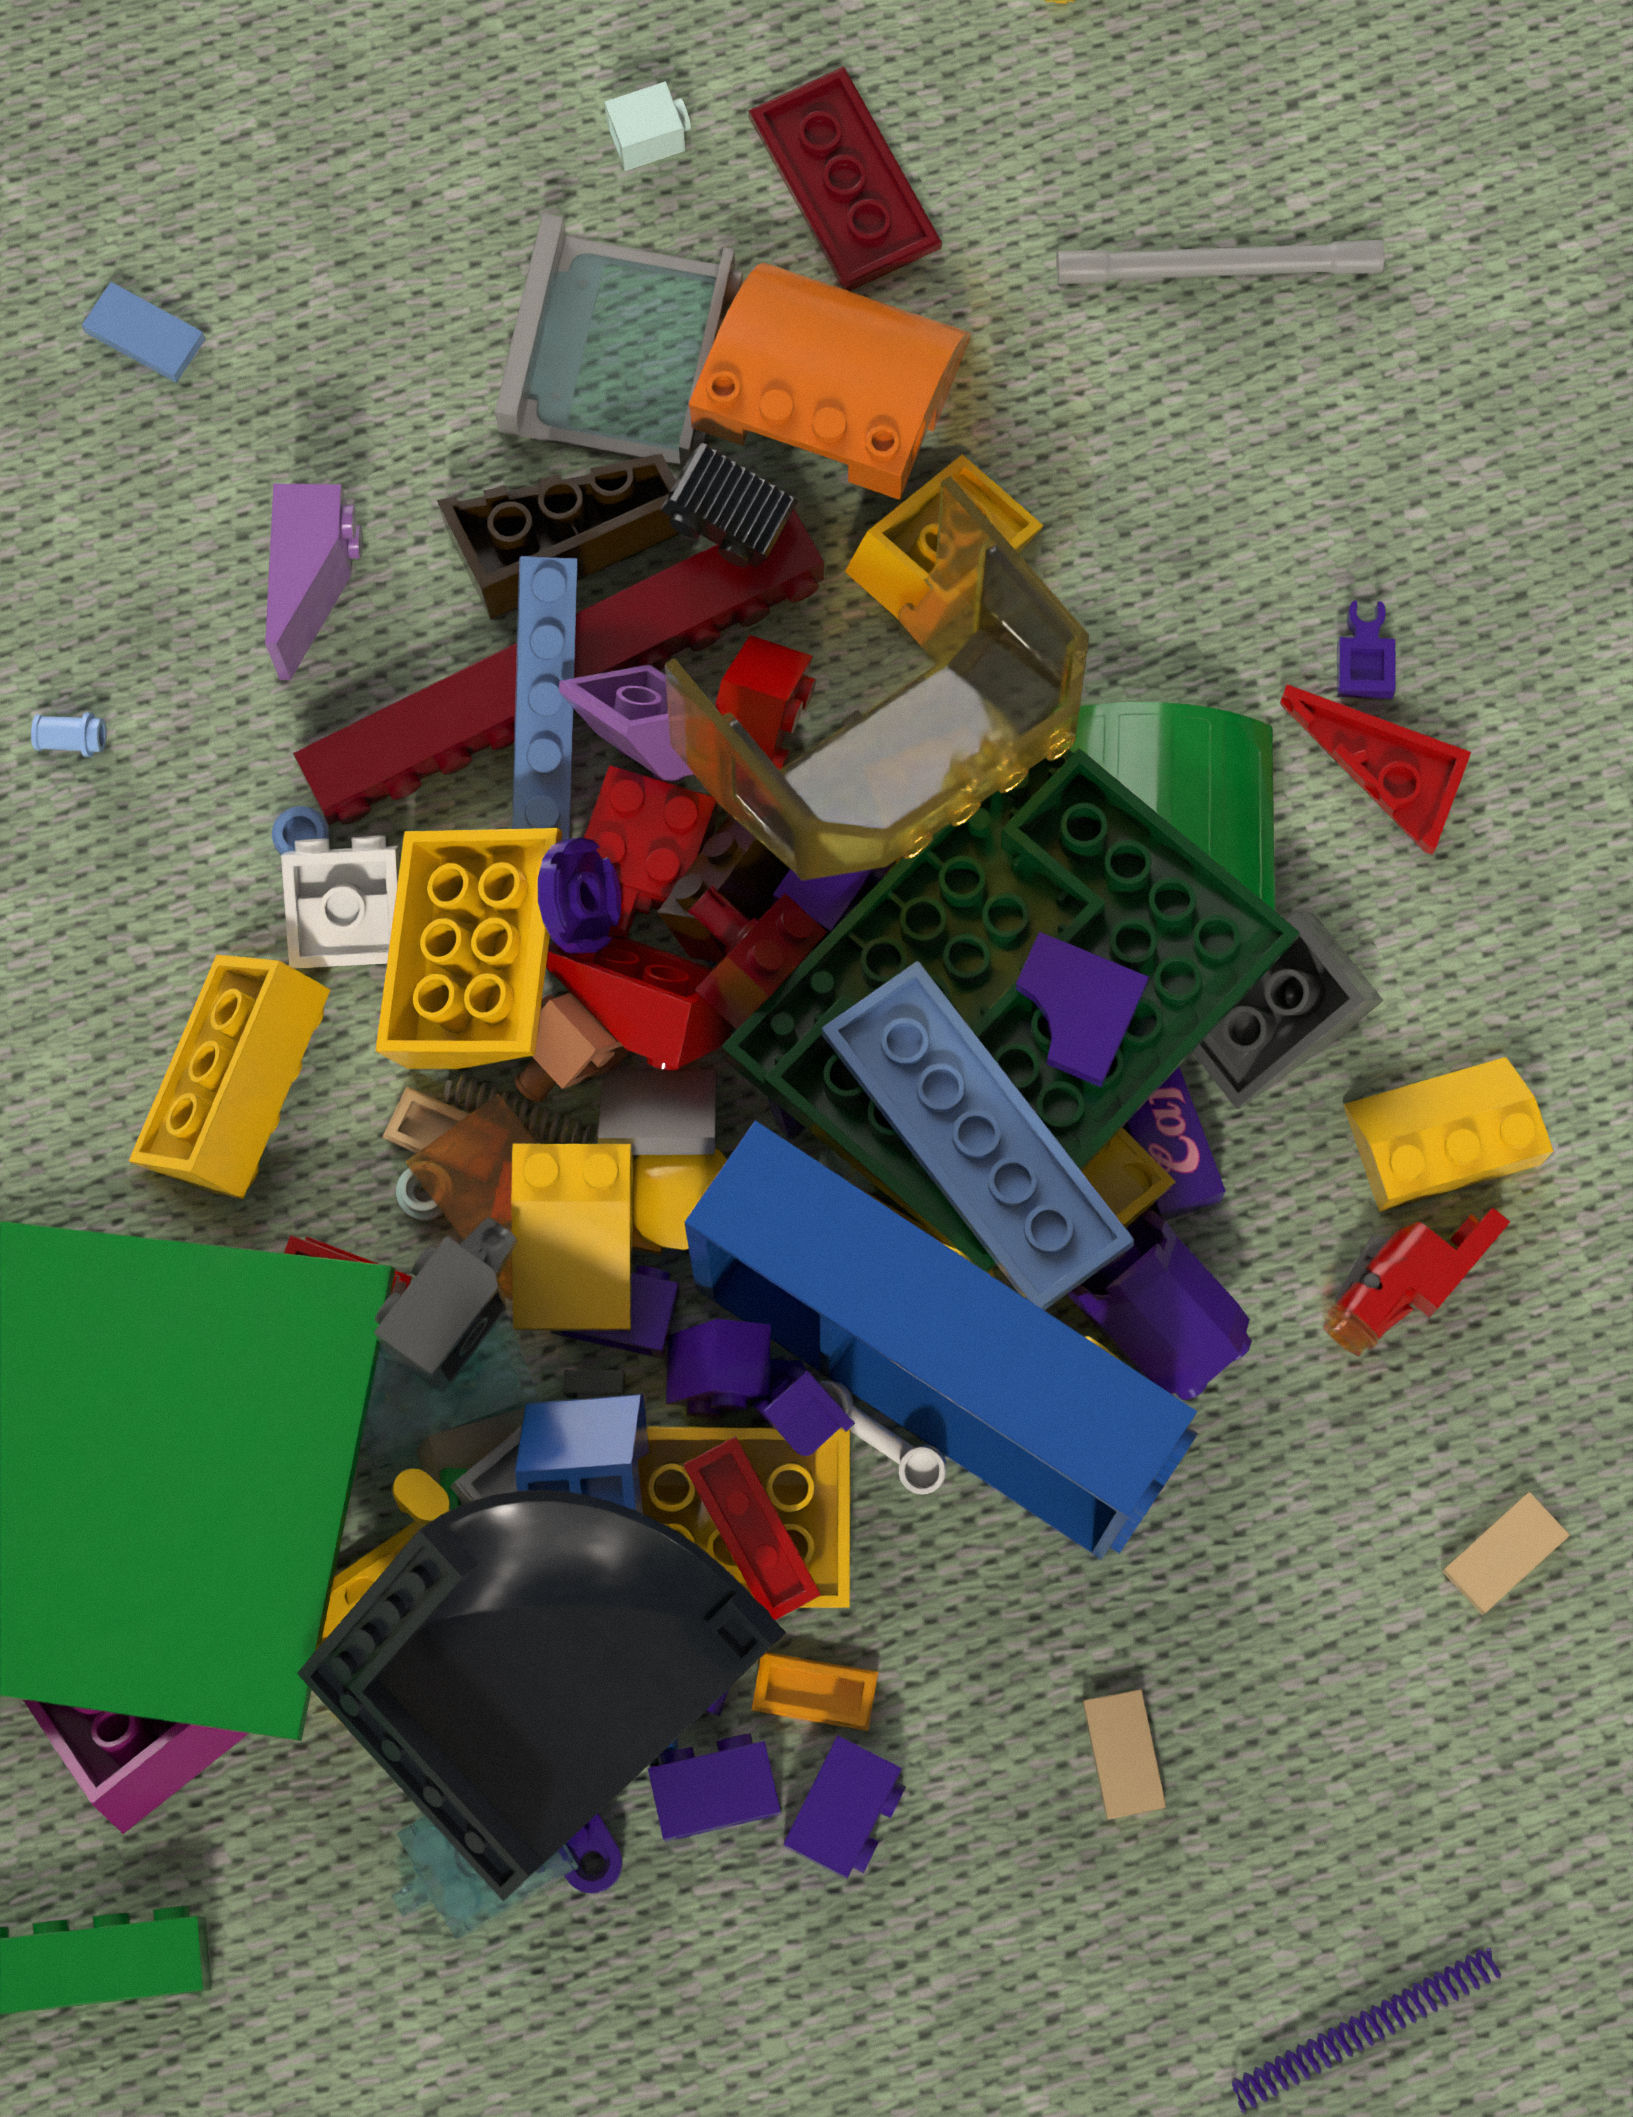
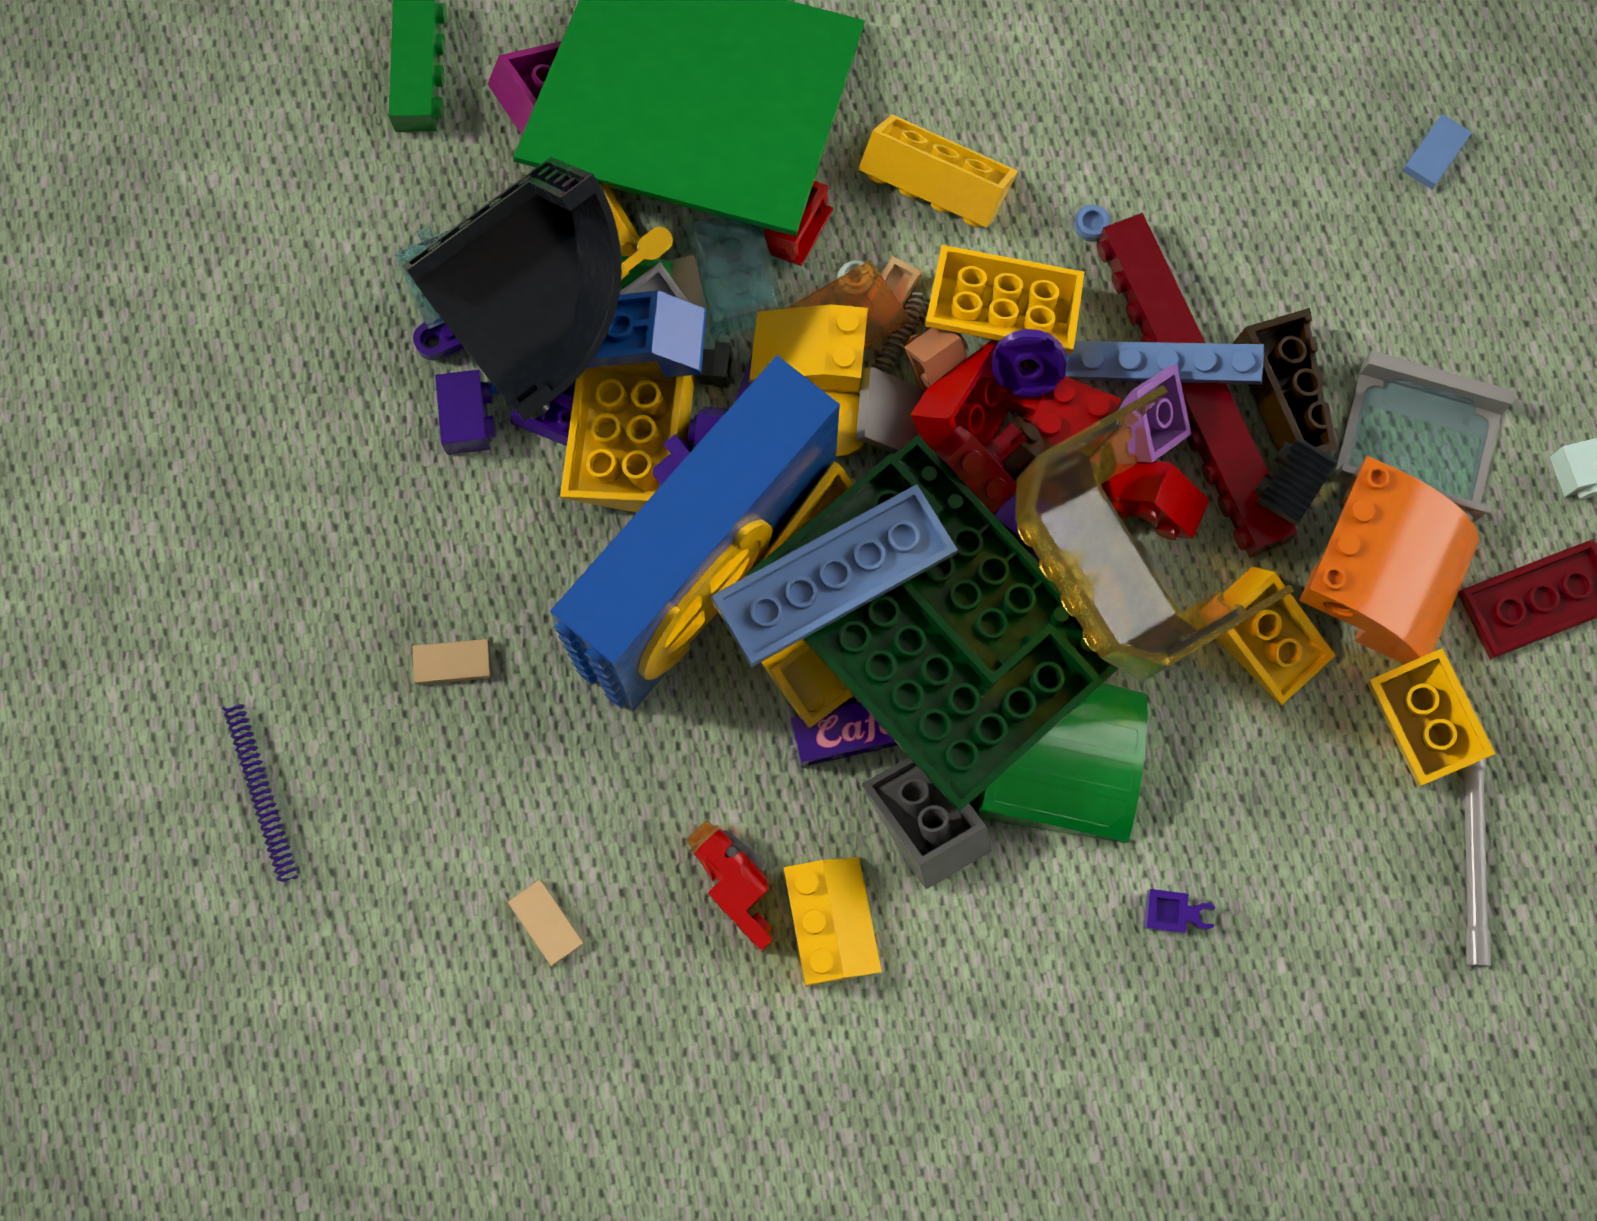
camera: 95 degrees right, 0 degrees up
(69, 733) = (1166, 100): light blue pin -> none
(308, 566) = (1264, 226): medium lavender slope -> none
(339, 901) = (1046, 233): white plate -> none
(447, 1305) = (765, 258): dark grey hinge -> none
(752, 1528) = (611, 435): red plate -> none
(814, 1691) = (517, 480): light orange tile -> none
(844, 1807) = (441, 486): dark purple brick -> none
(1052, 319) = (1430, 717): none -> yellow slope
(1084, 1003) = (919, 657): dark purple tile -> none
(1165, 1311) = (727, 711): dark purple brick -> none
(1397, 767) = (1091, 925): red wing -> none

